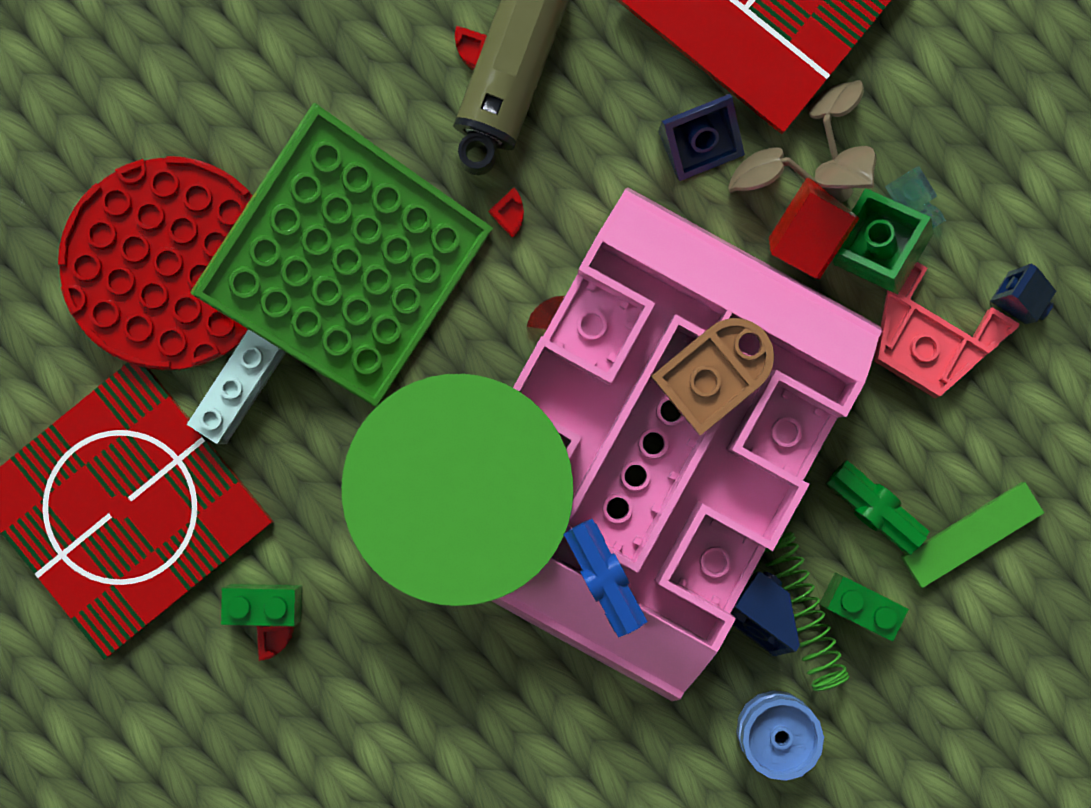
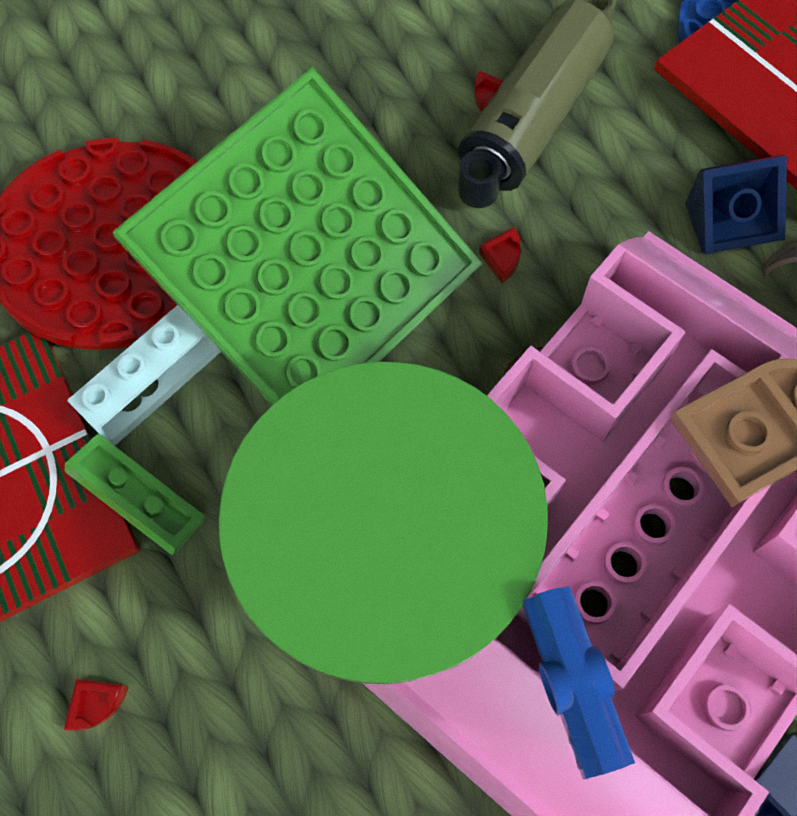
camera: 15 degrees right, 20 degrees down
(259, 483) = (134, 494): none -> bright green plate
(261, 605) = (88, 649): green brick -> none

